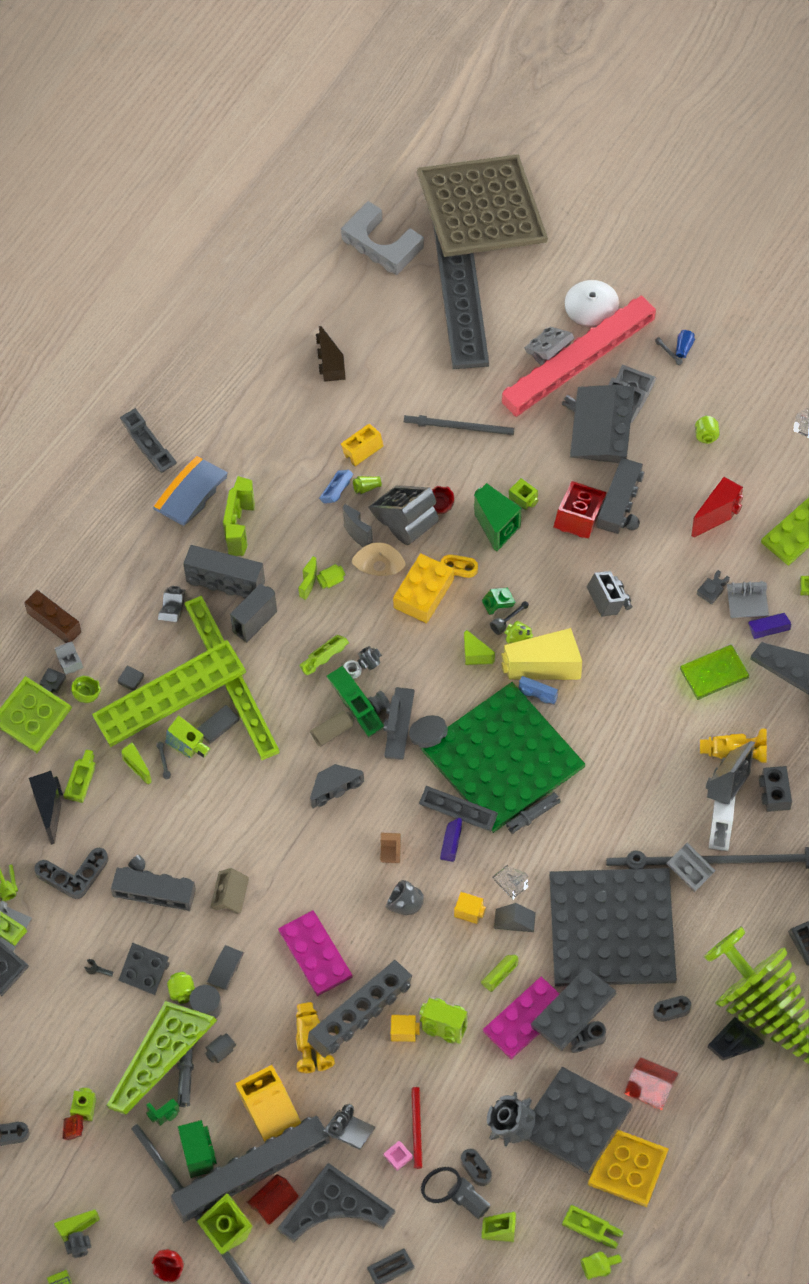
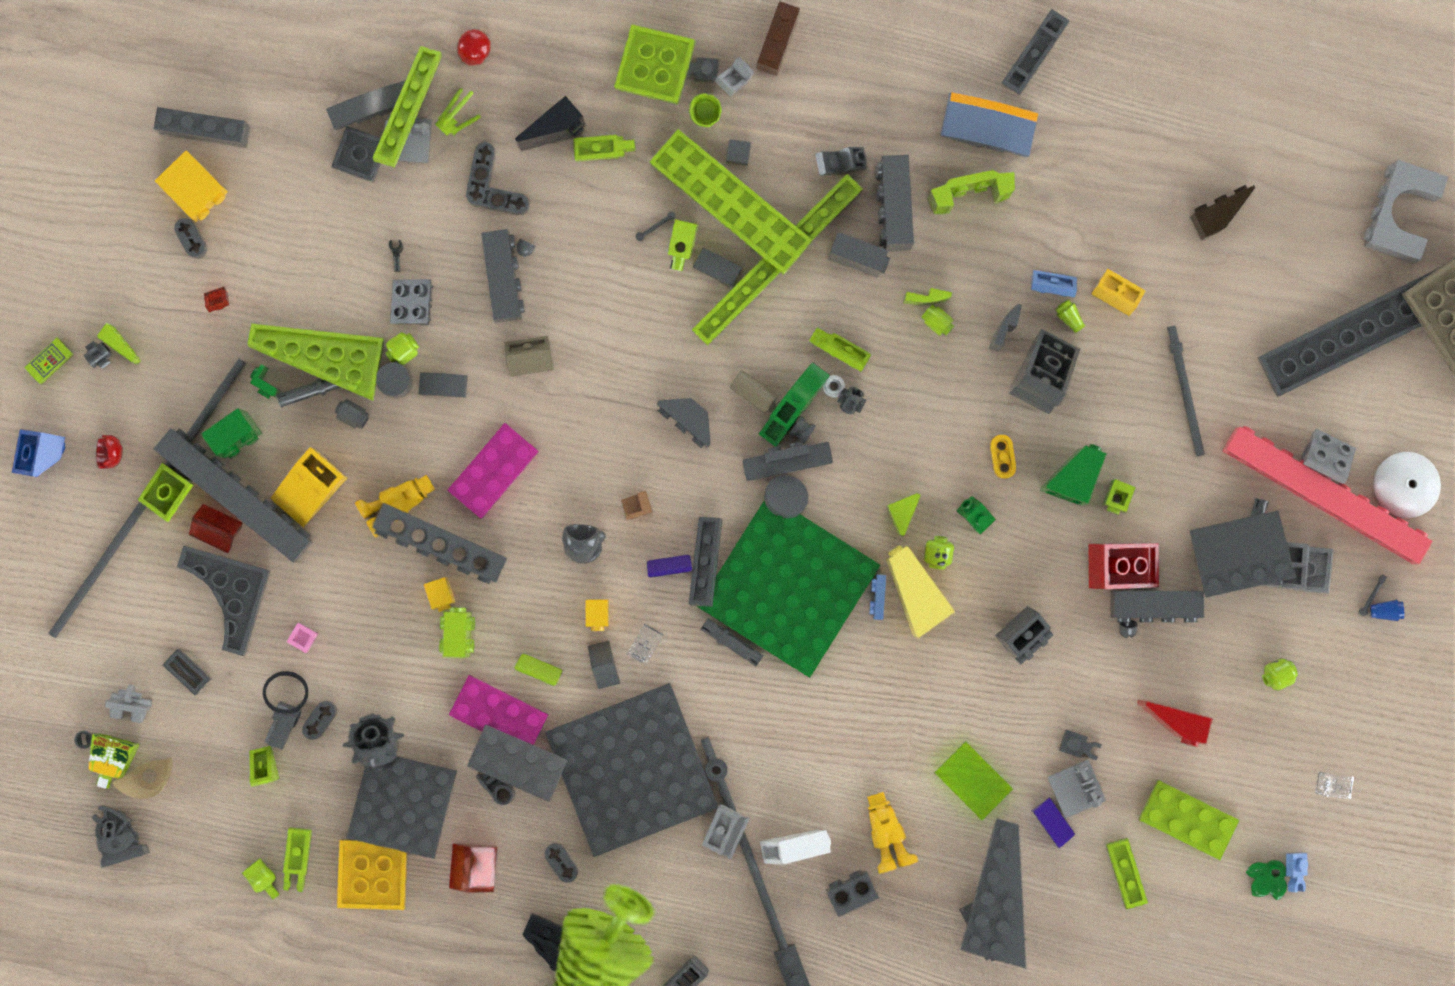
camera: 65 degrees right, 25 degrees up
(86, 1109) = (252, 304): lime brick -> none
(133, 759) = (641, 196): lime slope -> none
(349, 1128) = (310, 578): dark grey hinge -> none
(368, 555) = (977, 351): tan piece -> none
(416, 1119) = (341, 645): red bar -> none
(423, 588) = (959, 428): yellow brick -> none
(444, 499) = (1077, 406): red hair -> none
(499, 625) = (945, 527): hinge -> none
(731, 774) = (844, 841): dark grey slope -> none

